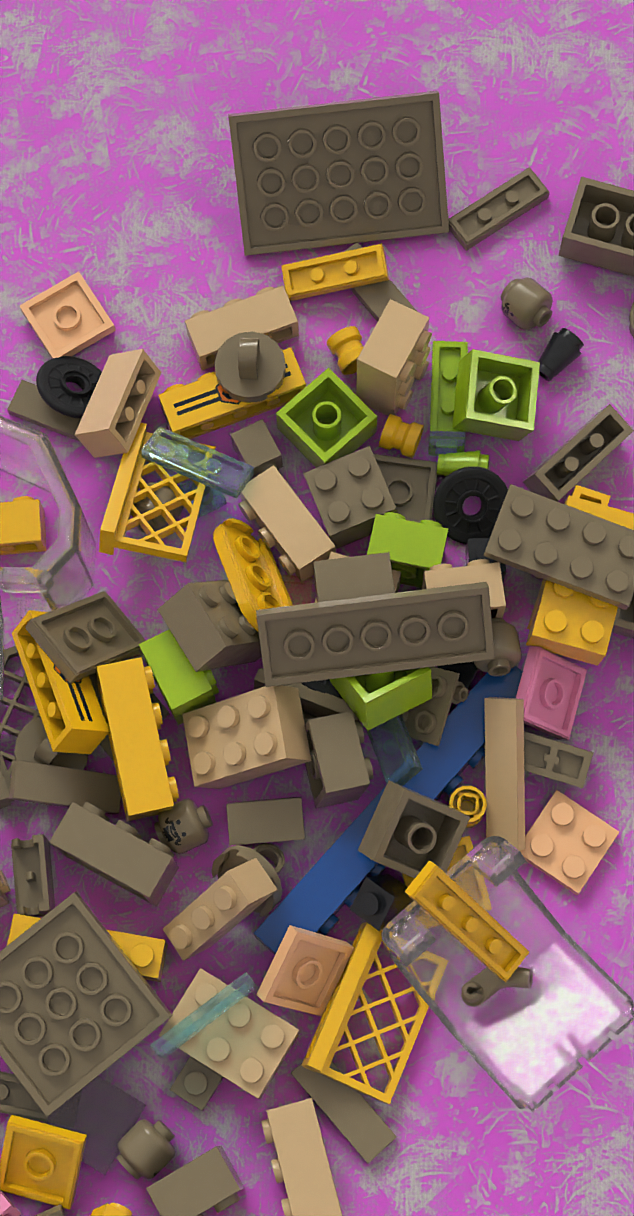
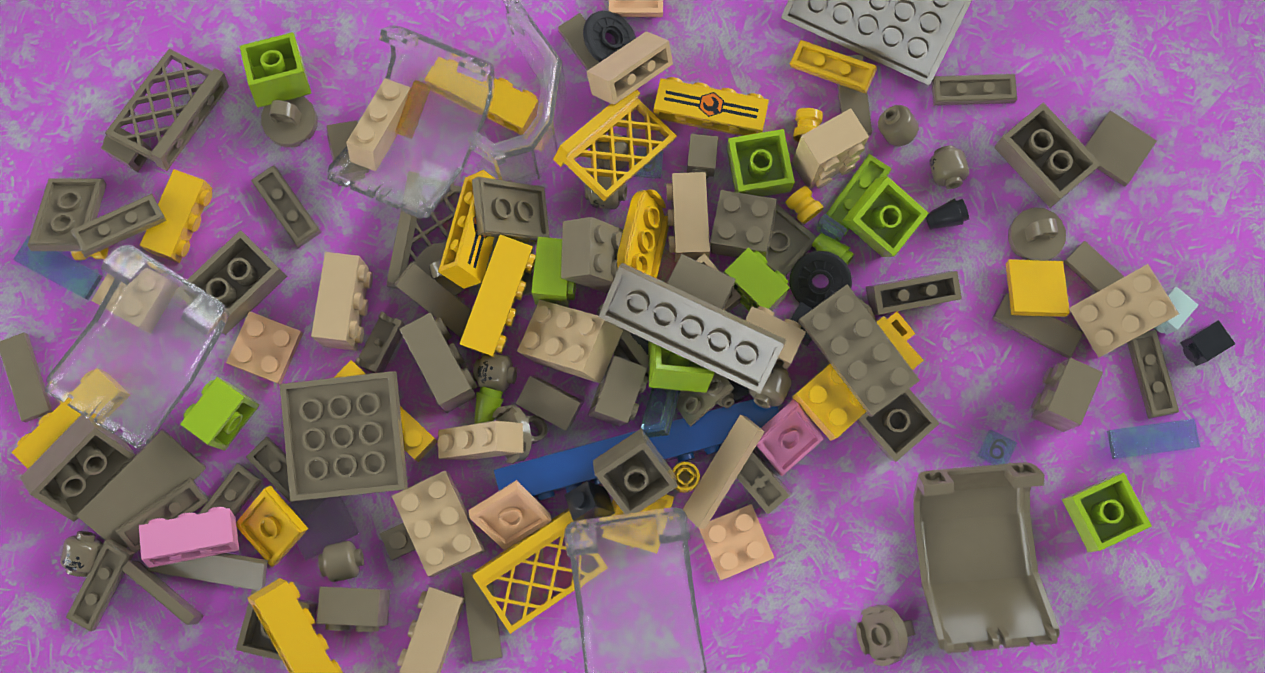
camera: 30 degrees right, 5 degrees up
(174, 568) = (613, 201): none -> dark tan head
(196, 866) = (486, 403): none -> lime cone
(197, 462) = (656, 139): clear light blue tile -> none
(203, 1016) = (425, 502): clear light blue tile -> none
(250, 366) = (732, 96): dark tan tile -> none
(264, 313) = (746, 65): tan brick -> none
(445, 292) = (898, 125): none -> dark tan head
(466, 921) = (629, 552): yellow tile -> none
(486, 984) = (627, 599): dark tan arm -> none

